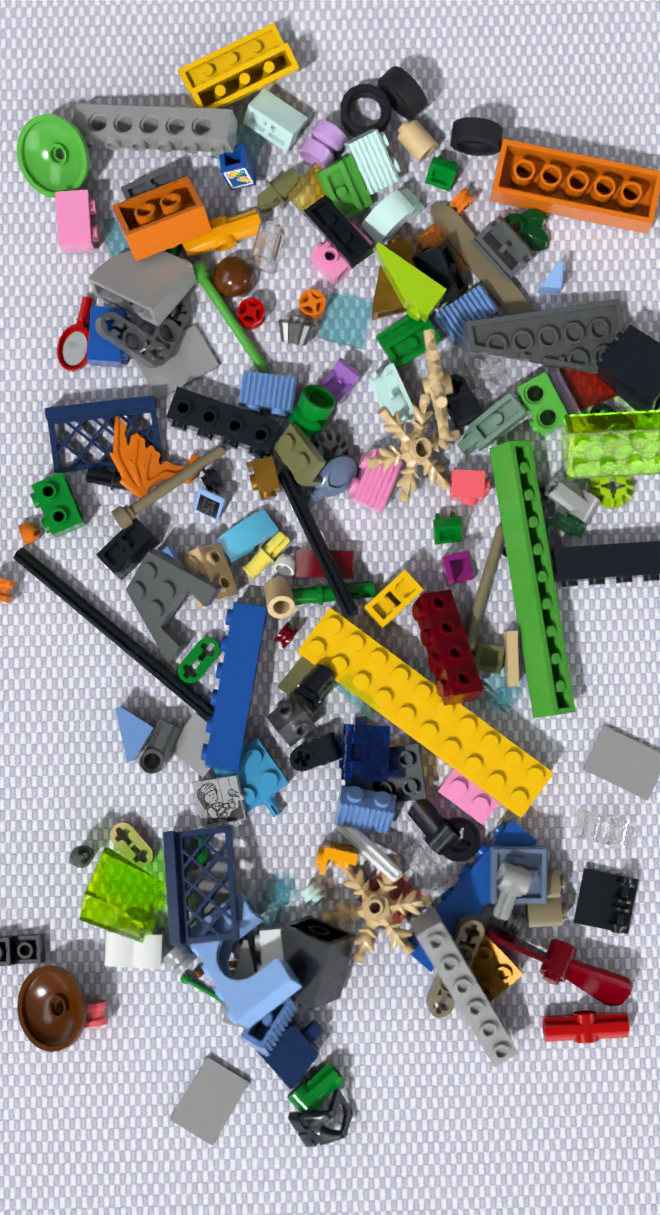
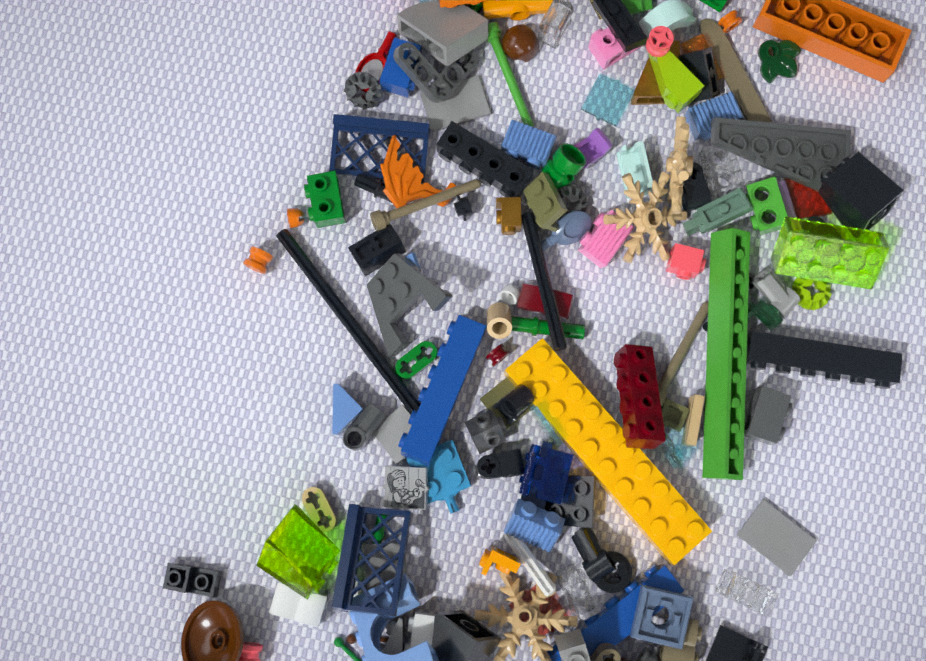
camera: 15 degrees right, 5 degrees down
(70, 362) = (364, 81): none -> dark grey gear
(81, 856) = (272, 509): dark grey axle -> none
(179, 958) = (337, 622): light grey wheel -> none
(209, 503) = (456, 227): slope -> none
(212, 563) = (448, 277): tan brick -> none
(246, 535) = (480, 261): medium azure slope -> none
(249, 308) = (530, 70): red wheel -> none
(266, 555) = (495, 282): light yellow axle -> none
(276, 896) = (436, 586): clear light blue piece -> none
(295, 330) = (563, 97): flat silver piece -> none
(310, 299) = (582, 73): orange wheel -> none
(313, 894) = (470, 592): light aqua plate -> none
(386, 244) = (663, 36): none -> coral wheel
(393, 599) = (599, 344): yellow brick -> none
(405, 340) = (655, 126): green plate -> none
(447, 529) = (659, 294): green tile -> none
(457, 568) = (660, 330): magenta panel -> none
(467, 796) = (628, 534): bright pink brick -> none
(503, 248) = (758, 67): dark grey hinge -> none
(512, 882) = (656, 623): light grey axle -> none
(553, 282) = (795, 104): light blue slope -> none
(589, 636) = (767, 415): none -> dark grey brick

